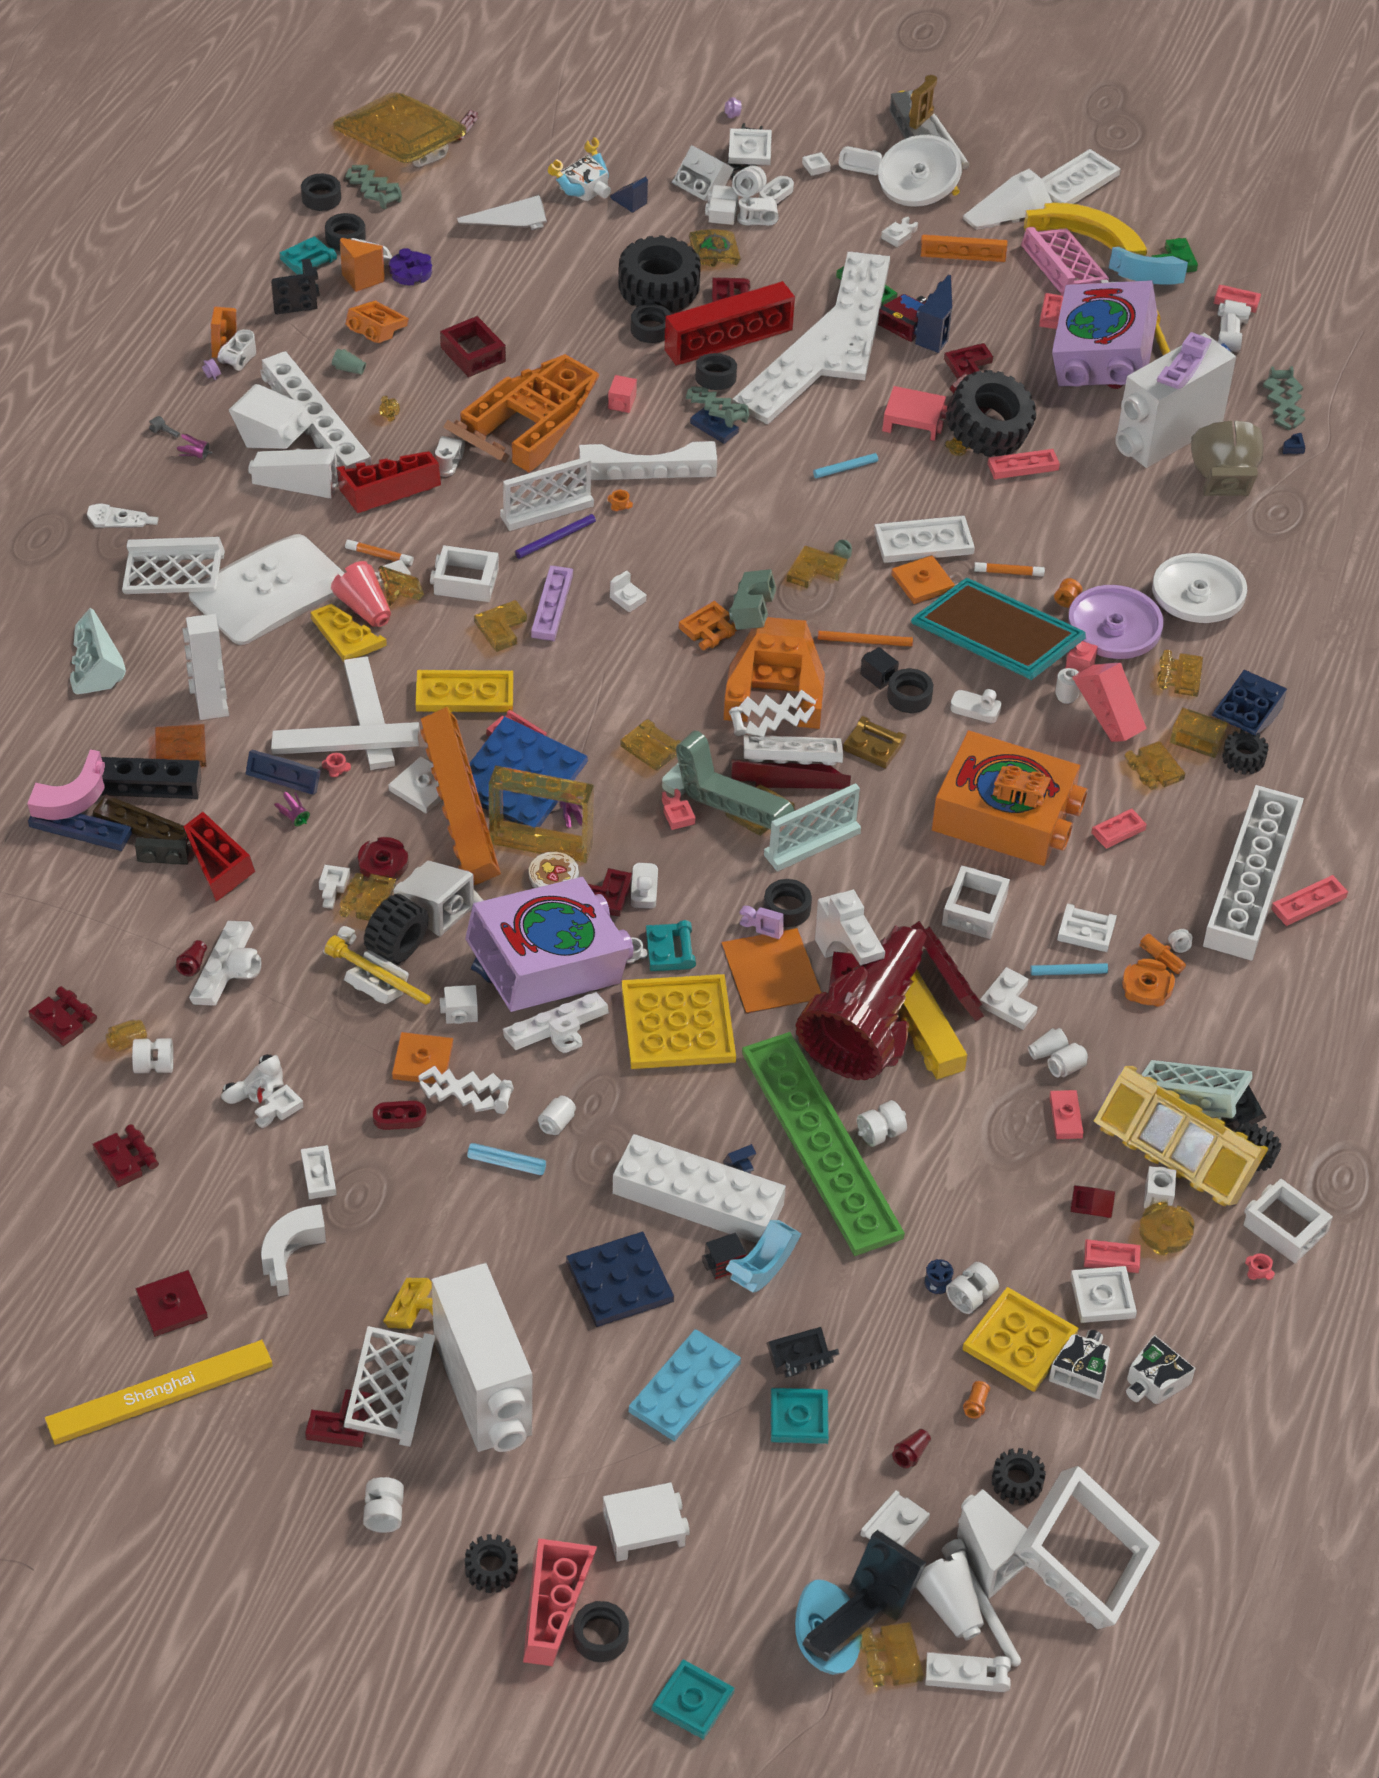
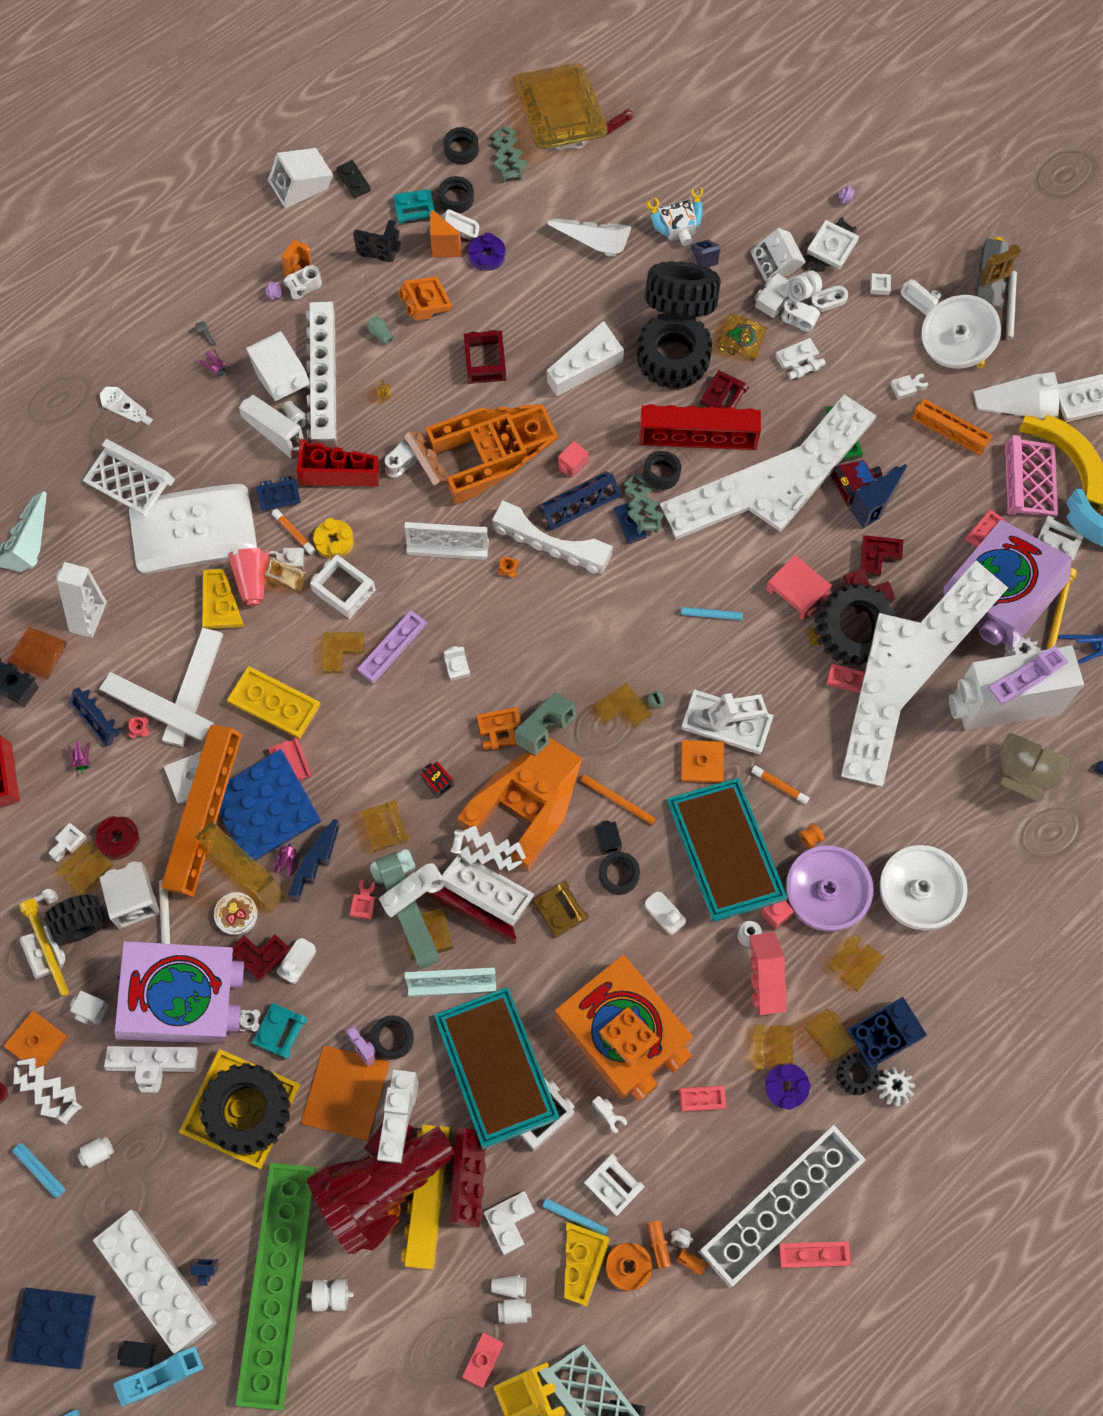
camera: 30 degrees right, 20 degrees up
(169, 268) = (299, 175): none -> white slope
(226, 255) = (353, 179): none -> pearl dark grey plate
(342, 525) = (278, 494): none -> dark blue bracket
(417, 534) = (333, 528): none -> yellow plate
(557, 535) = (437, 578): dark purple bar -> none
(578, 312) = (587, 359): none -> white wedge
(604, 796) = (318, 854): none -> dark blue slope
(636, 218) = (682, 289): none -> black tyre
(645, 419) = (576, 493): none -> dark blue fence
(649, 312) = (639, 382): black tyre -> none
(677, 686) = (437, 779): none -> black brick
(694, 977) = (223, 1088): none -> black tyre
(724, 766) = (412, 887): none -> white plate
(782, 245) = (798, 354): none -> white plate
(908, 878) = (496, 1068): none -> reddish brown door
(926, 515) = (736, 709): none -> white bracket
(1035, 874) = (605, 1108): none -> white plate
(1057, 420) = (902, 661): none -> white piece
(1103, 996) = (583, 1262): none -> yellow wing
(1198, 776) = (800, 1085): none -> dark purple plate
(1205, 954) = (692, 1262): none -> orange pin
(1286, 746) = (899, 1094): none -> white gear

